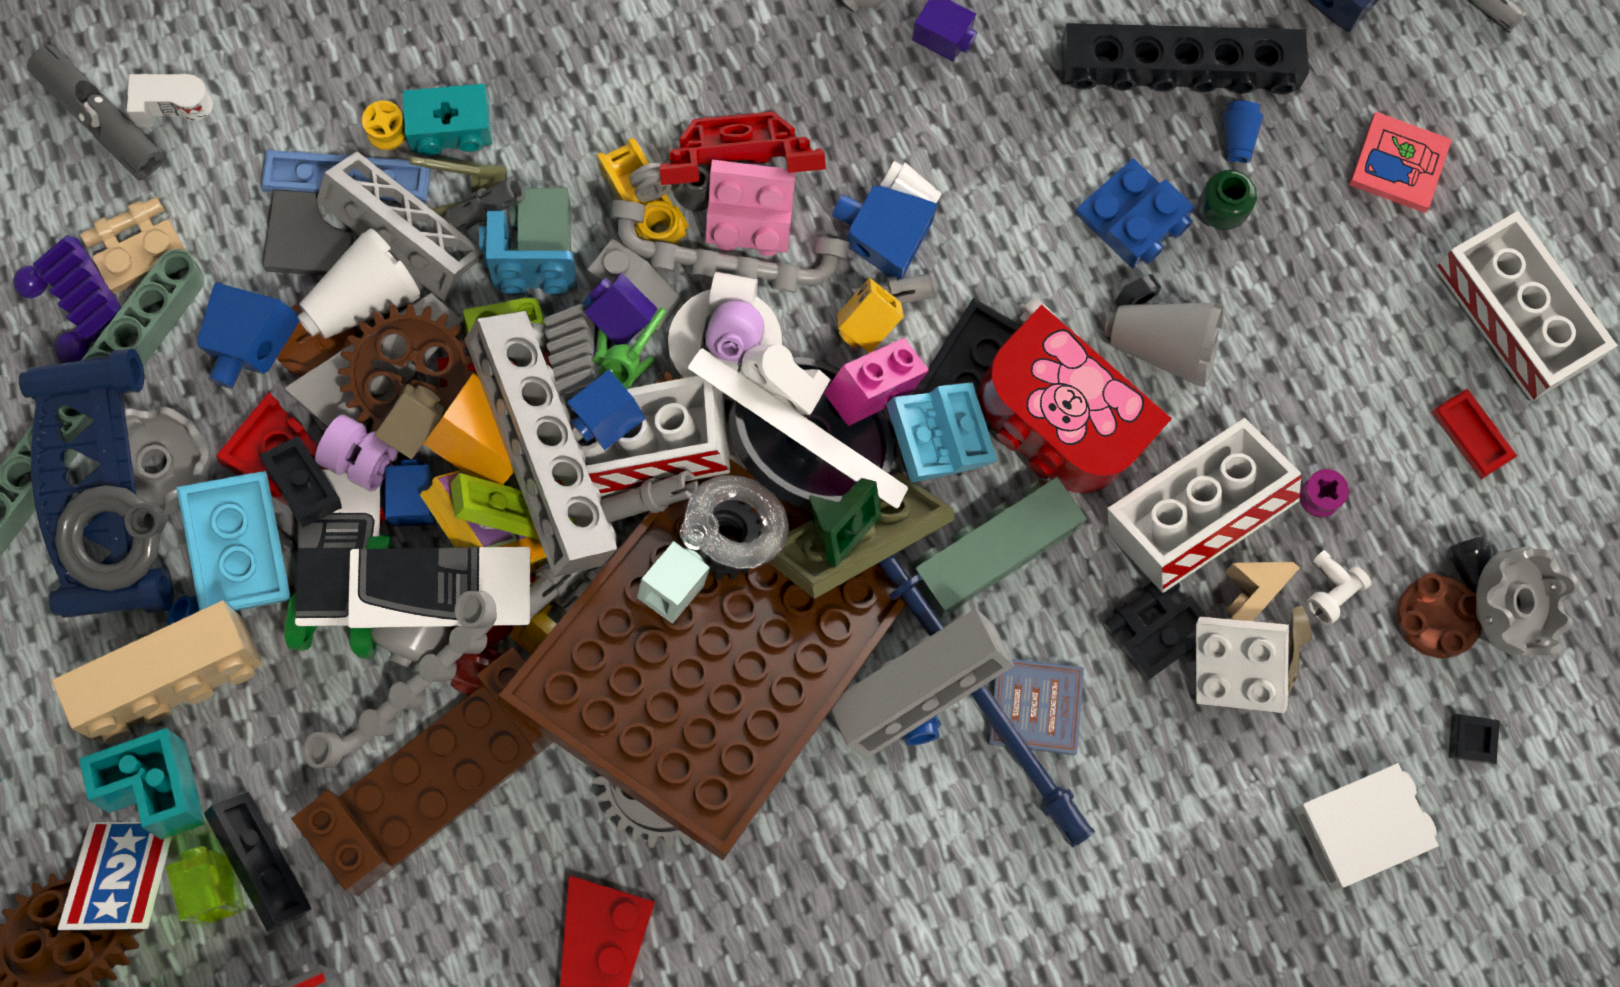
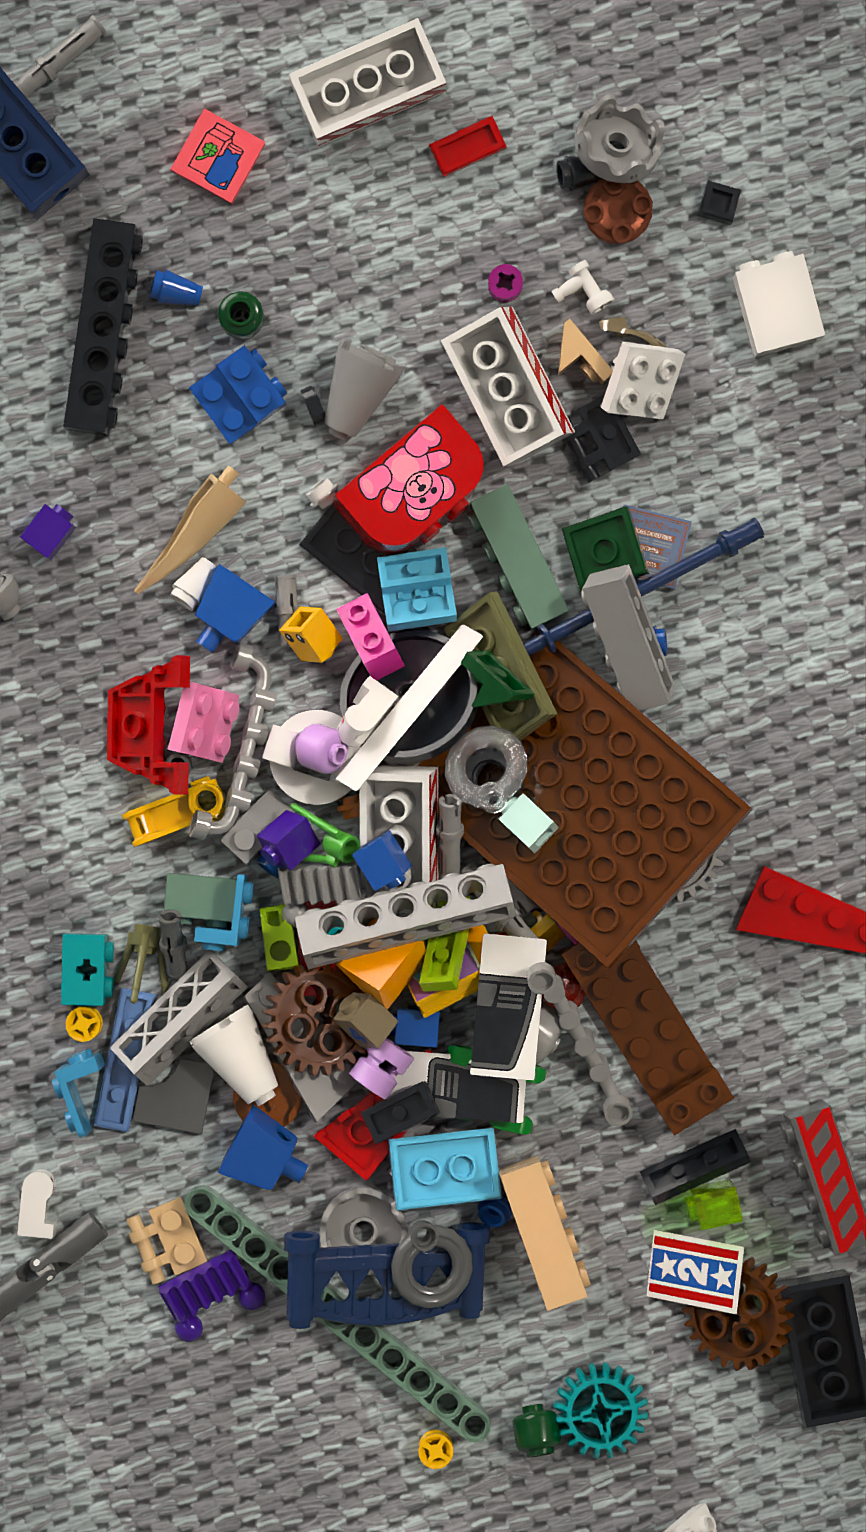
camera: 75 degrees left, 15 degrees up
(149, 773) = (619, 1241): teal brick -> none
(297, 113) = (64, 1084): none -> dark azure bracket
(648, 182) = (175, 805): light grey bush -> none
(982, 190) = (203, 519): none -> tan piece
(1036, 649) = (605, 544): none -> dark green tile

